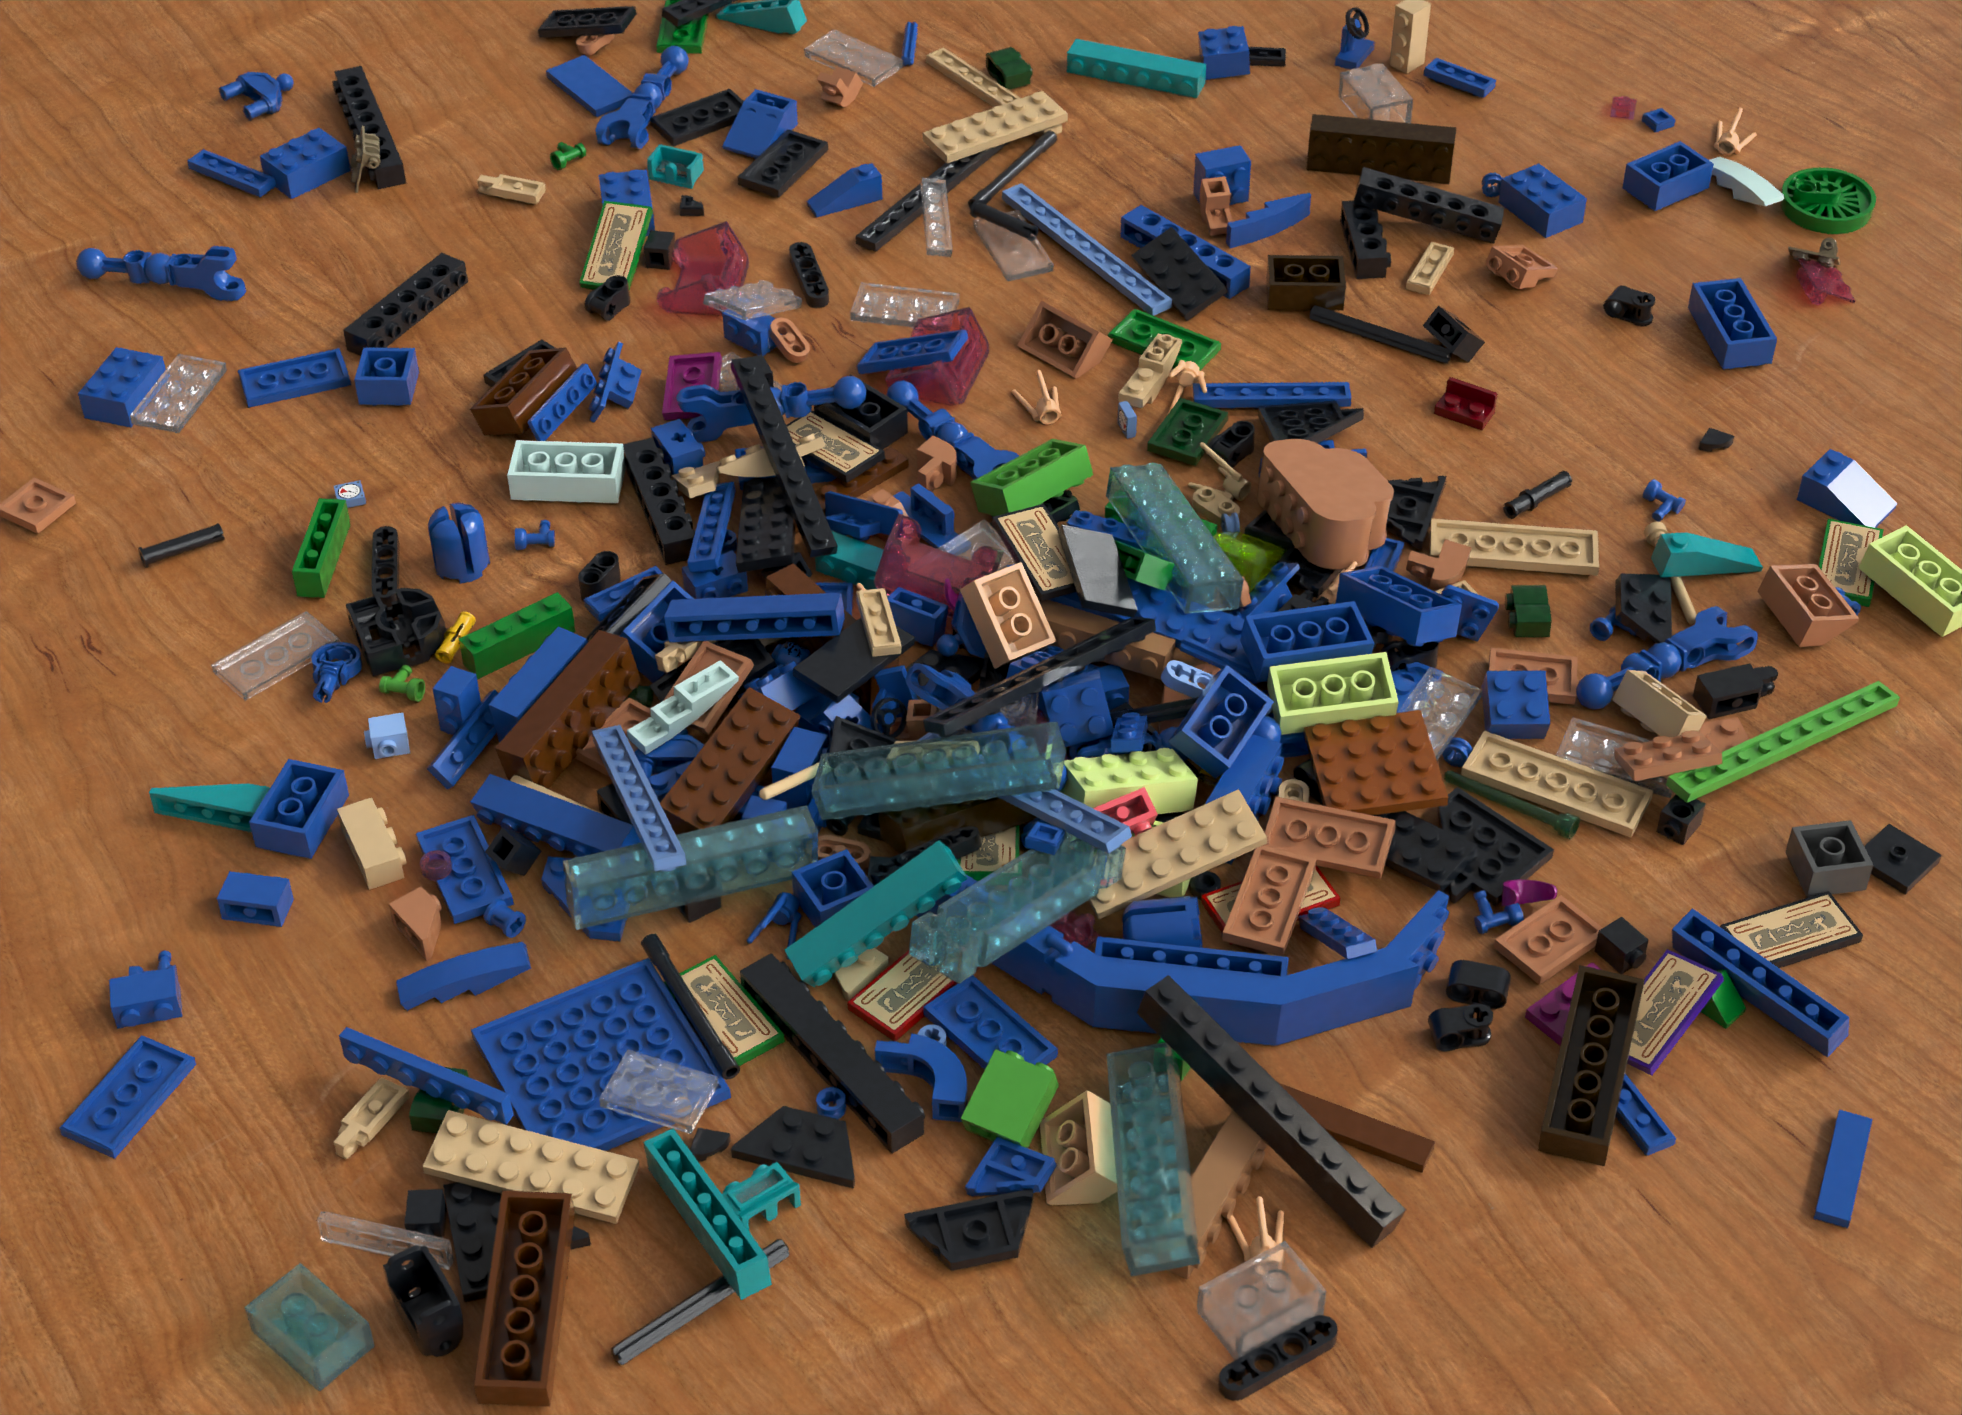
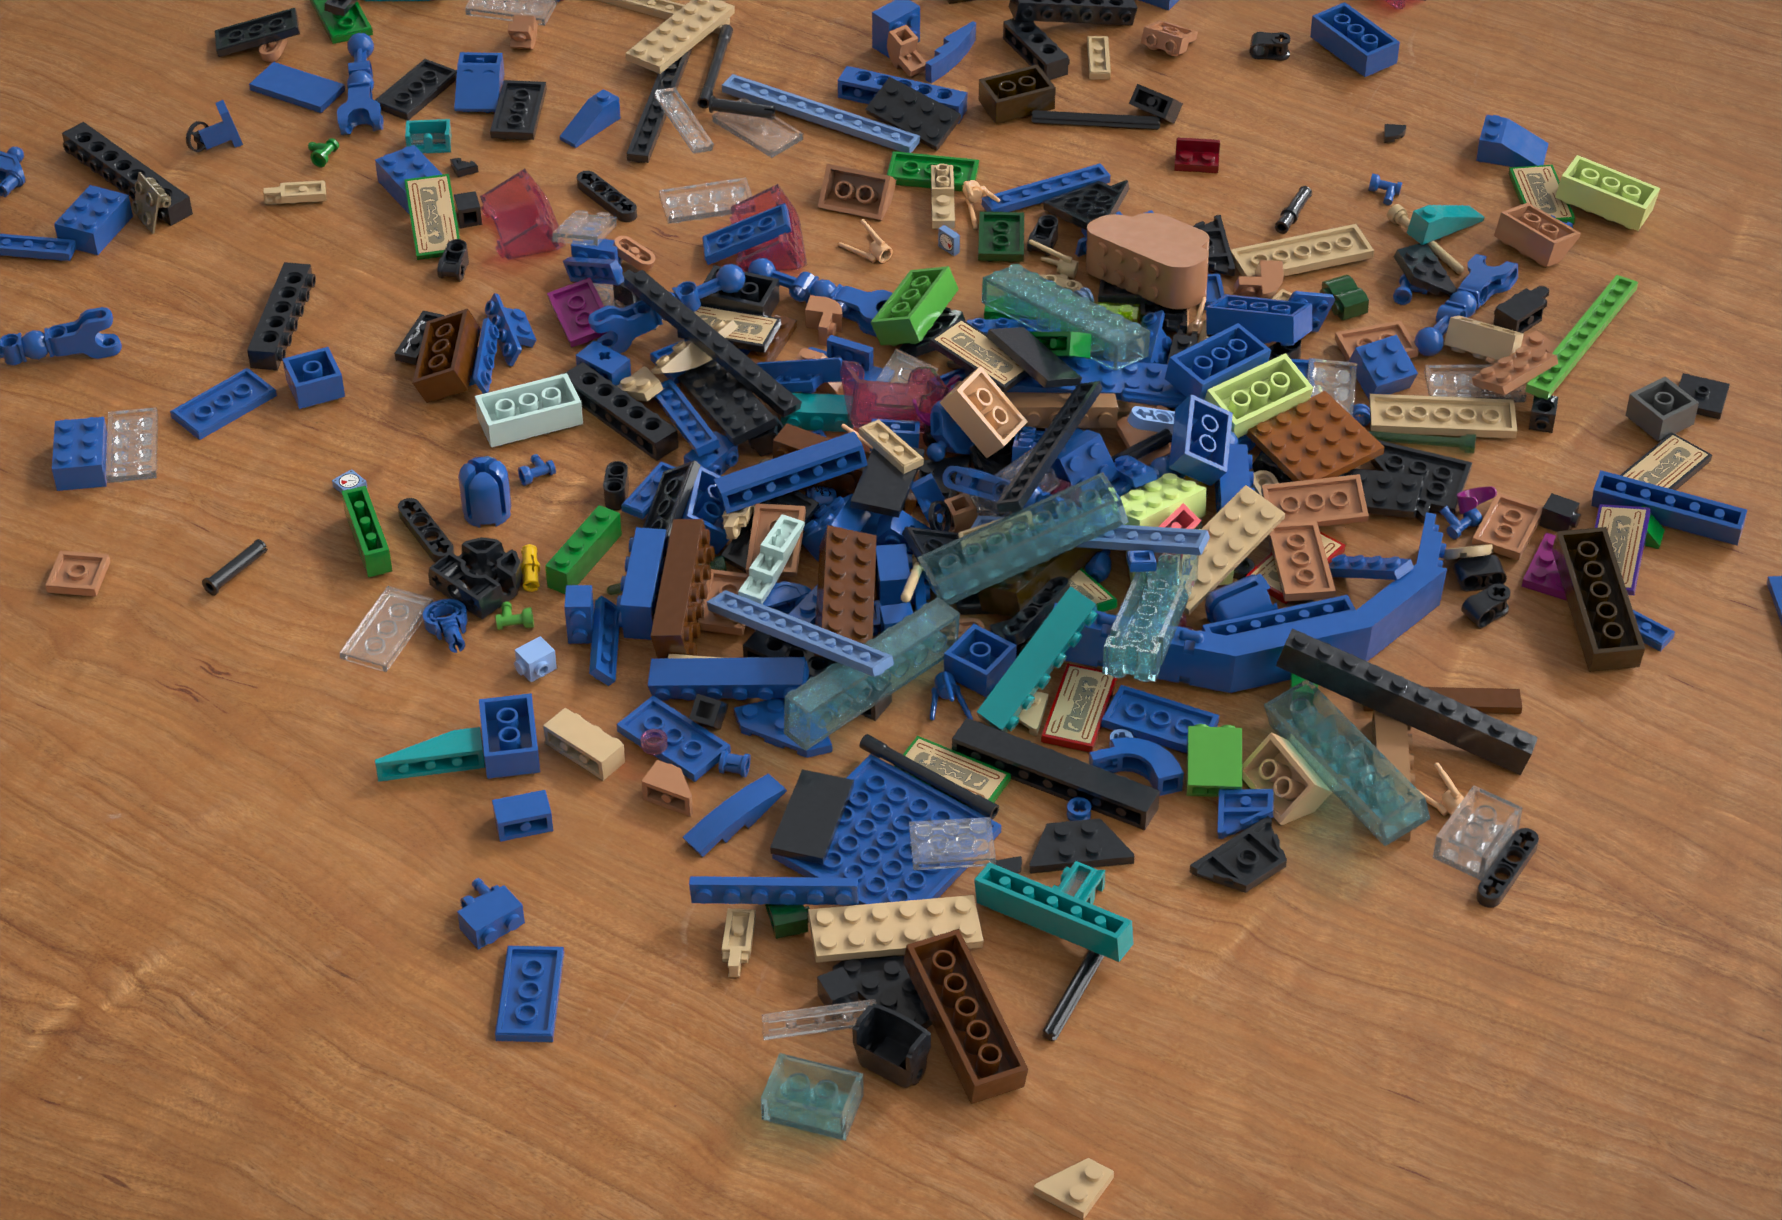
camera: 25 degrees left, 0 degrees up
(480, 109) = (215, 134): none -> blue piece
(534, 1006) = (812, 817): none -> black tile
(726, 344) = (599, 270): none -> blue plate
(1475, 953) = (1469, 551): none -> tan tile

